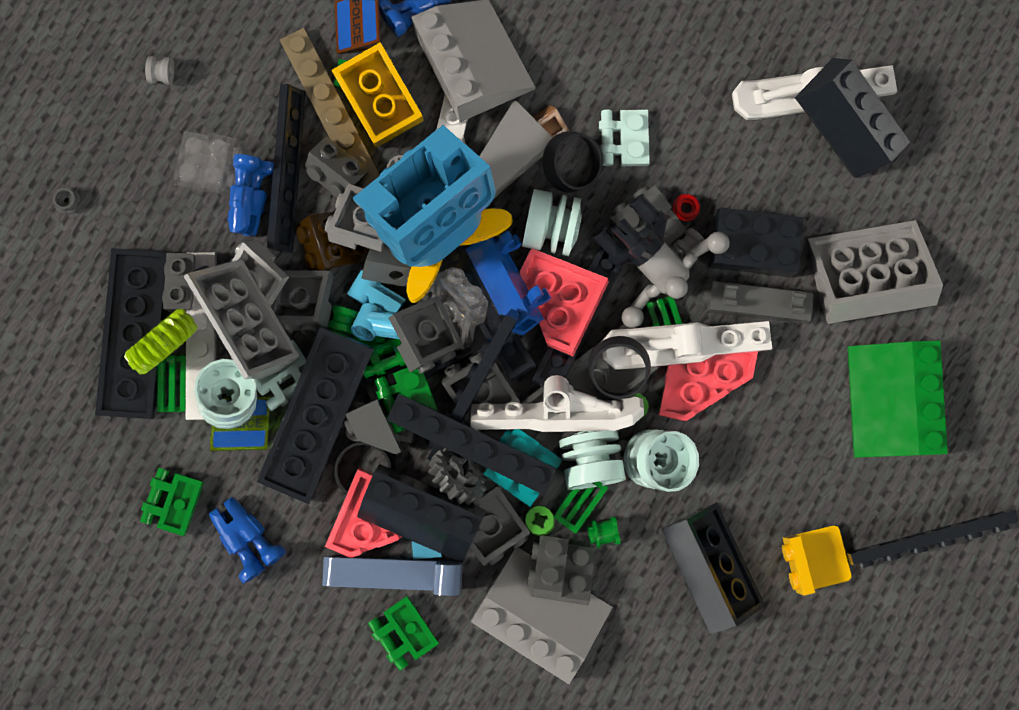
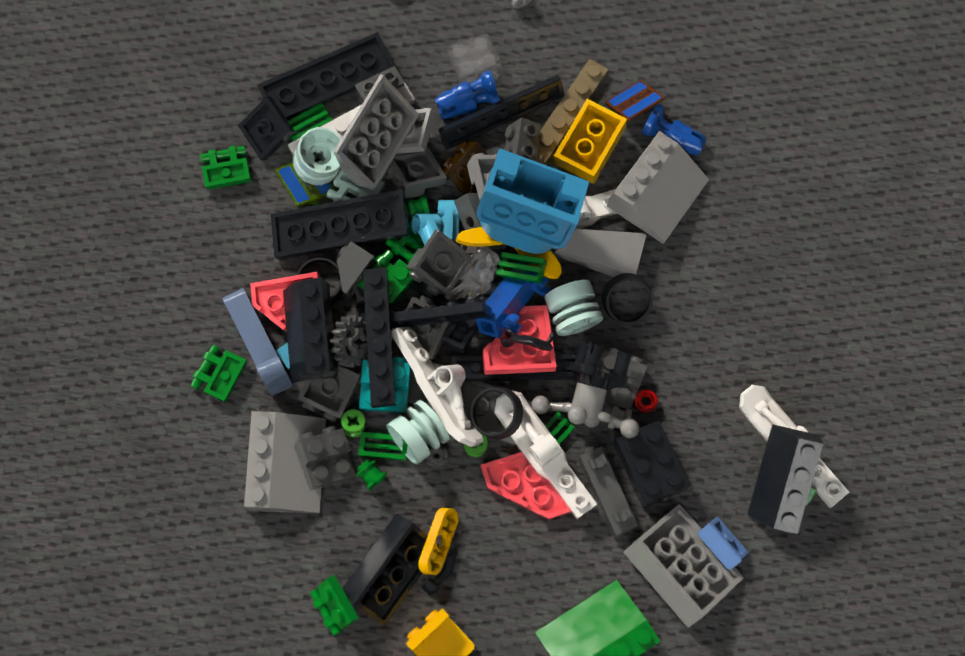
camera: 60 degrees right, 10 degrees down
(154, 433) = (266, 128): none -> black plate
(161, 341) = (331, 94): lime gear -> none
(237, 535) = (228, 223): blue piece -> none
(457, 260) = (525, 259): none -> green tile
(551, 121) = (647, 270): medium nougat slope -> none
(572, 284) = (527, 340): none -> black piece
(633, 137) = (673, 335): light aqua plate -> none
(672, 466) = (451, 494): light aqua wheel -> none
(720, 646) = (333, 605): none -> green plate
(724, 515) = (445, 526): none -> yellow beam
(732, 499) = (430, 585): none -> black piece
(872, 219) = (723, 543): none -> medium blue slope

